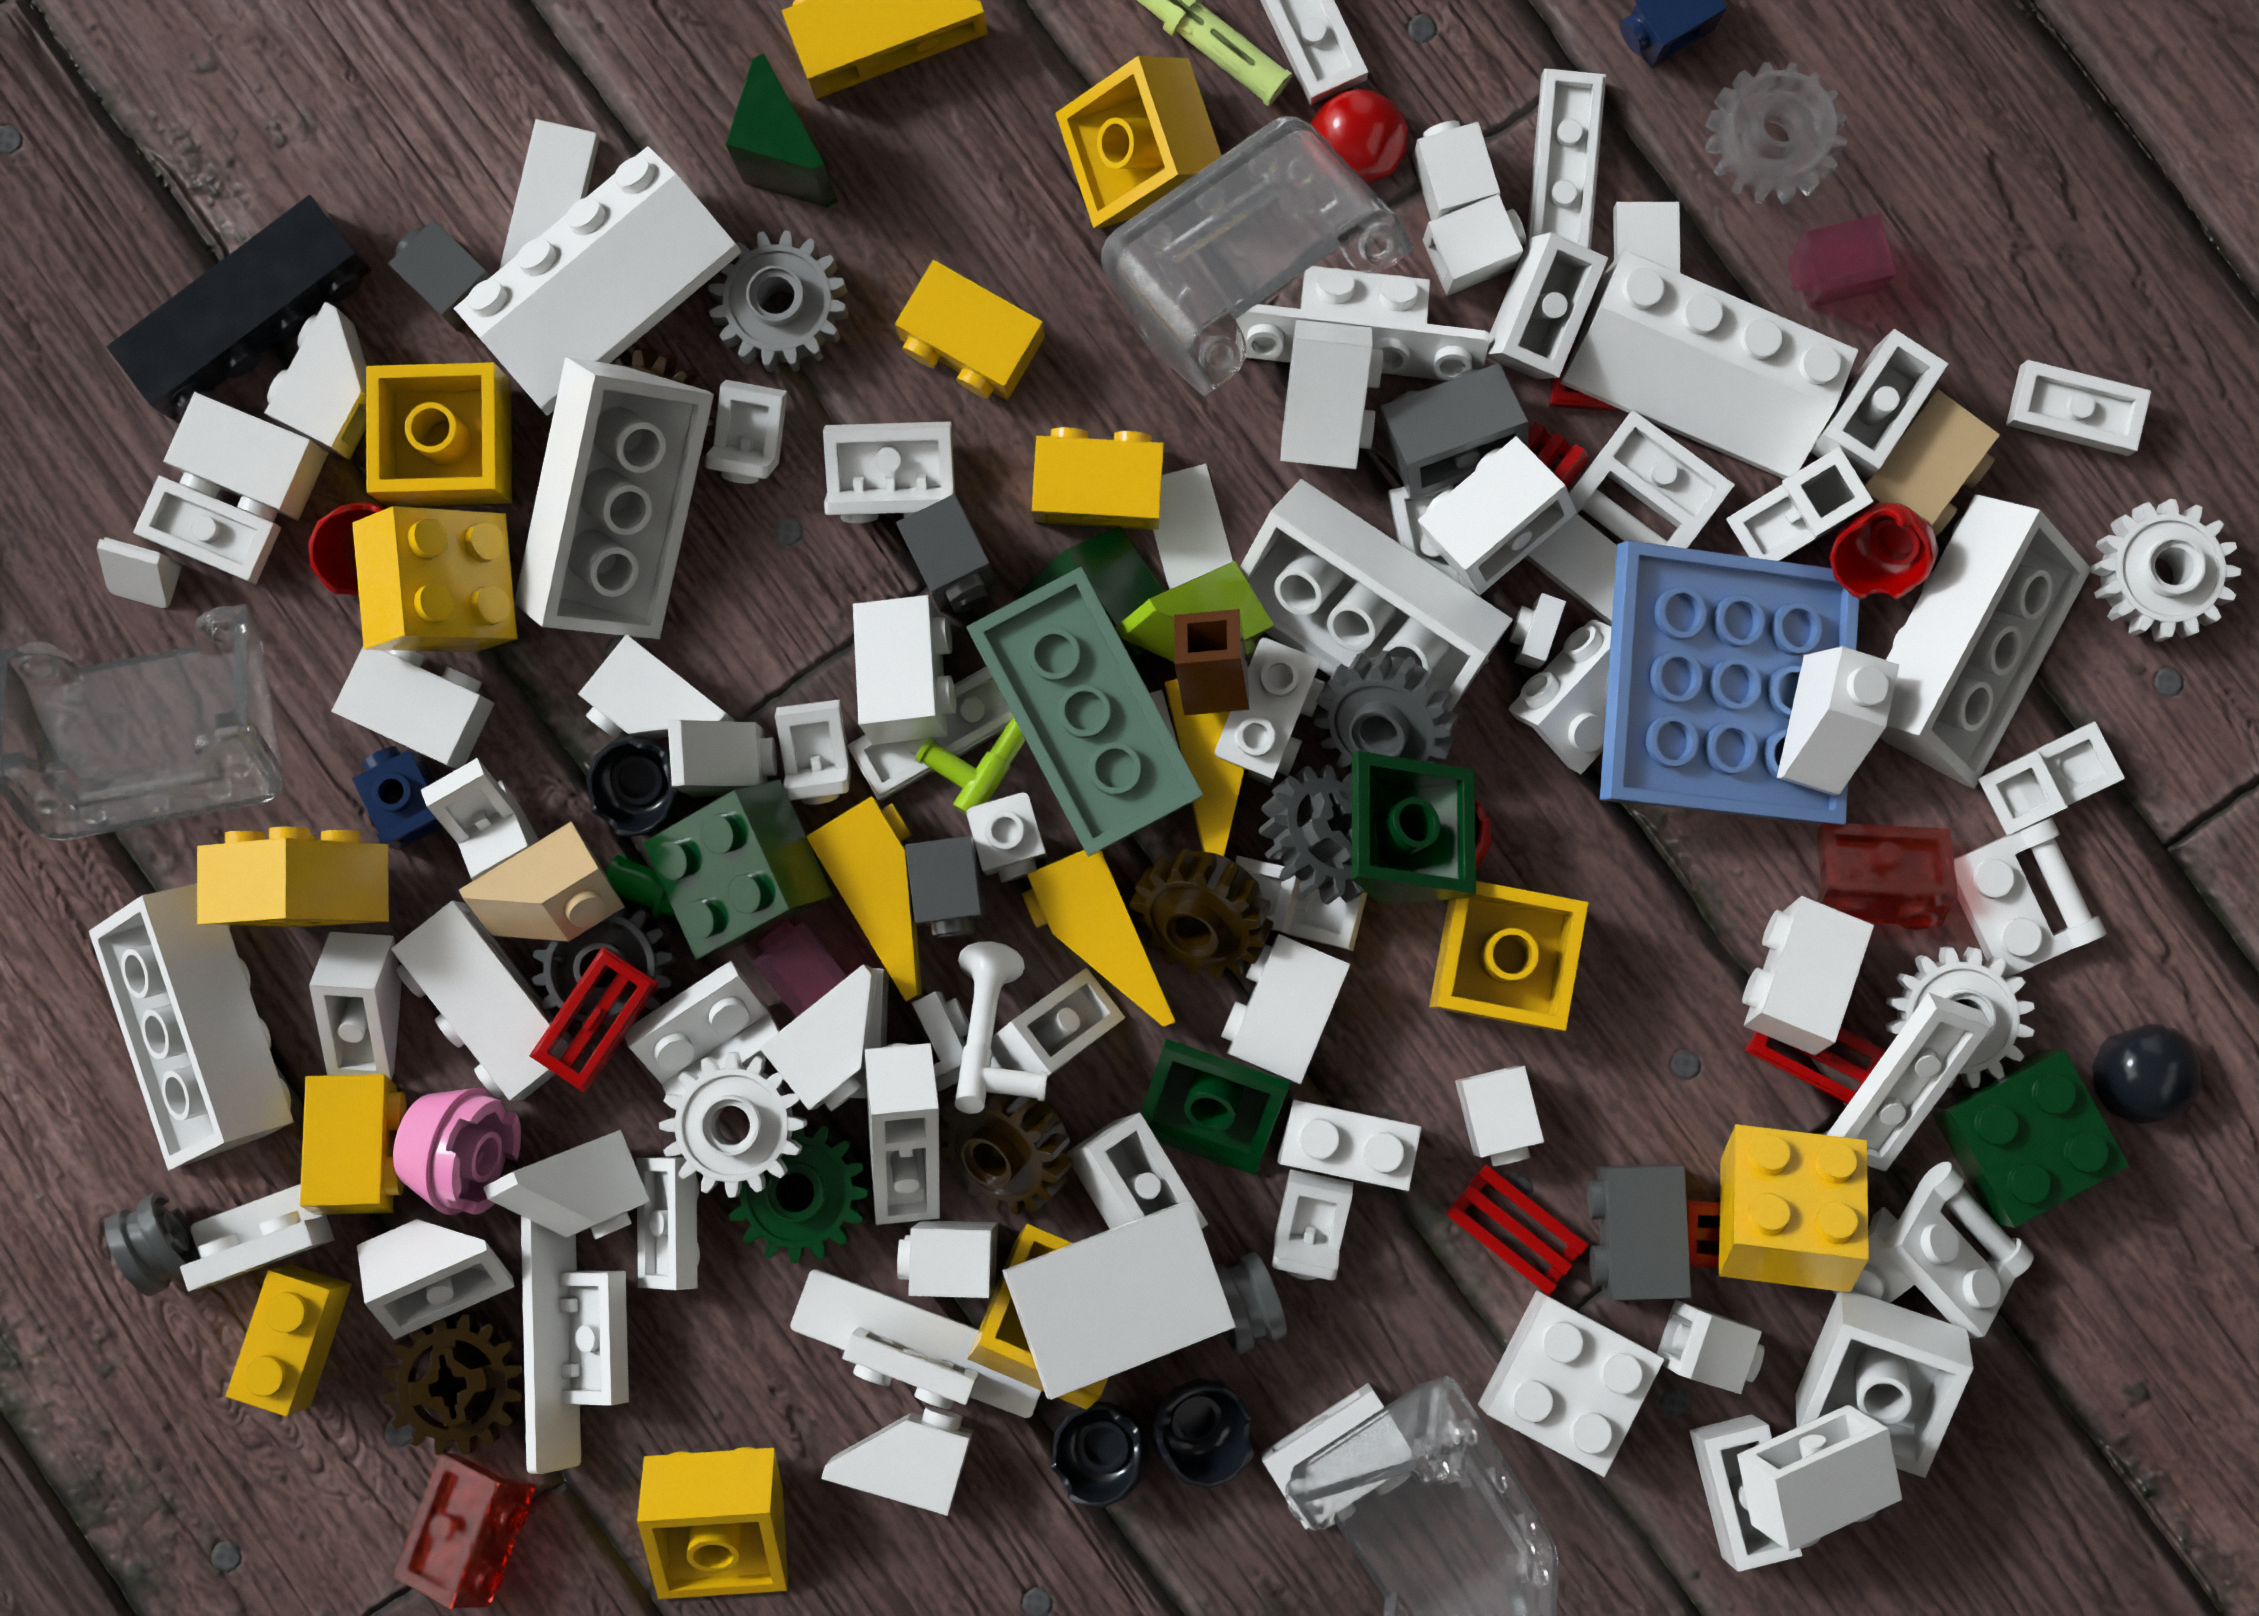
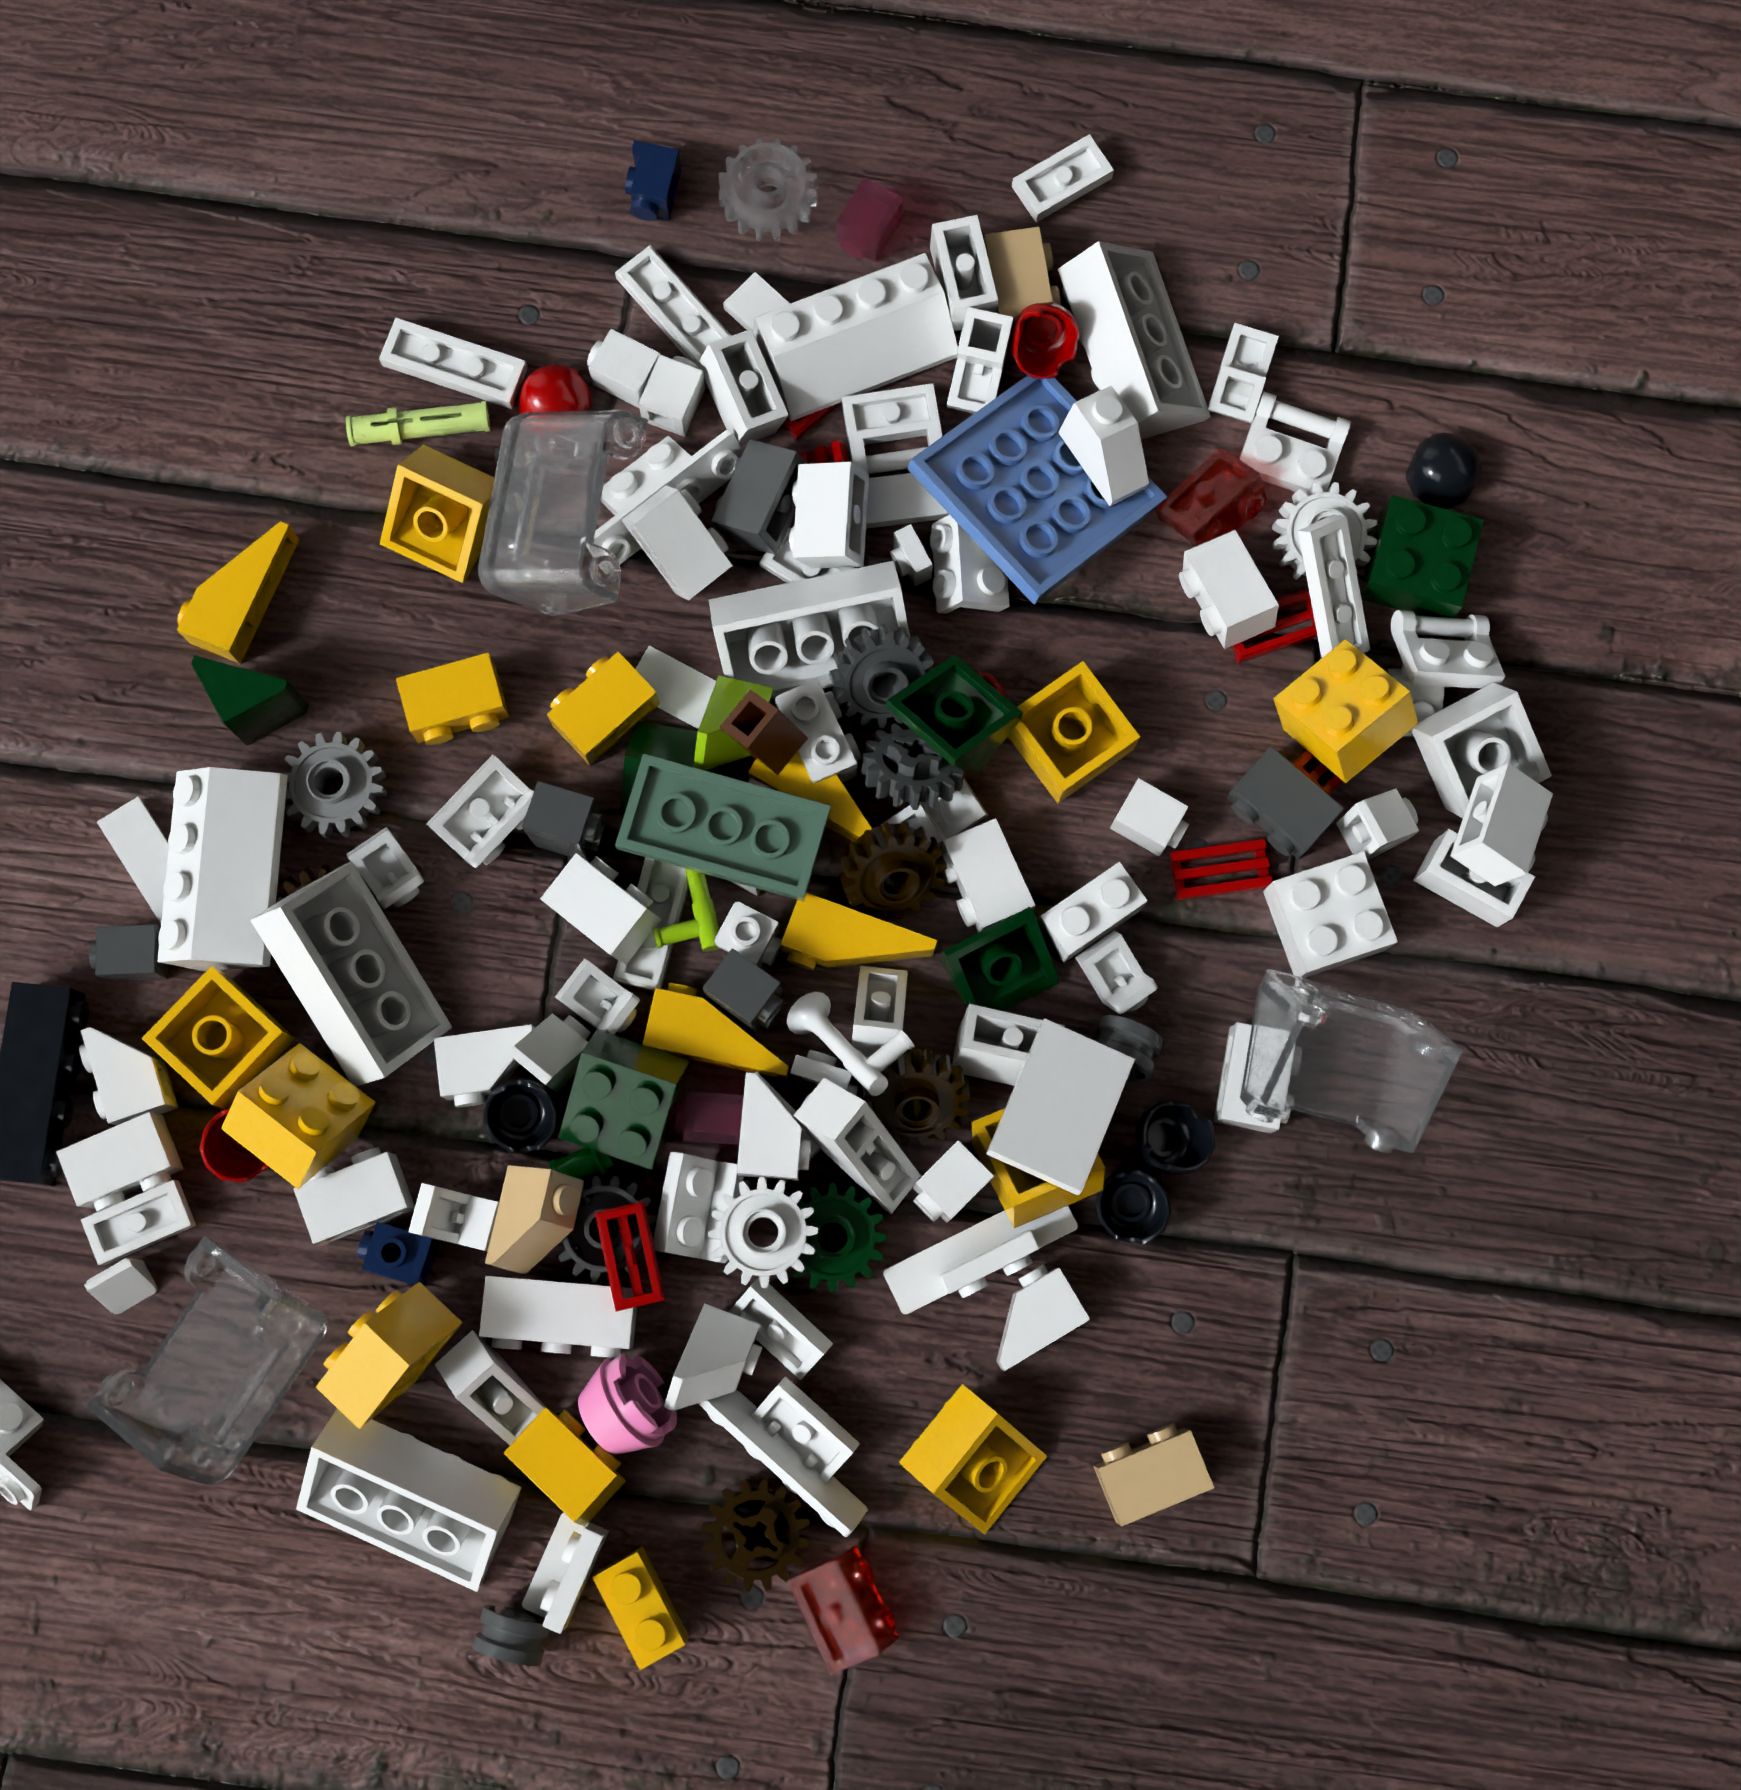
camera: 55 degrees left, 5 degrees down
(426, 1275) = (681, 1488): white slope -> none
(2195, 559) = (1194, 194): white gear -> none

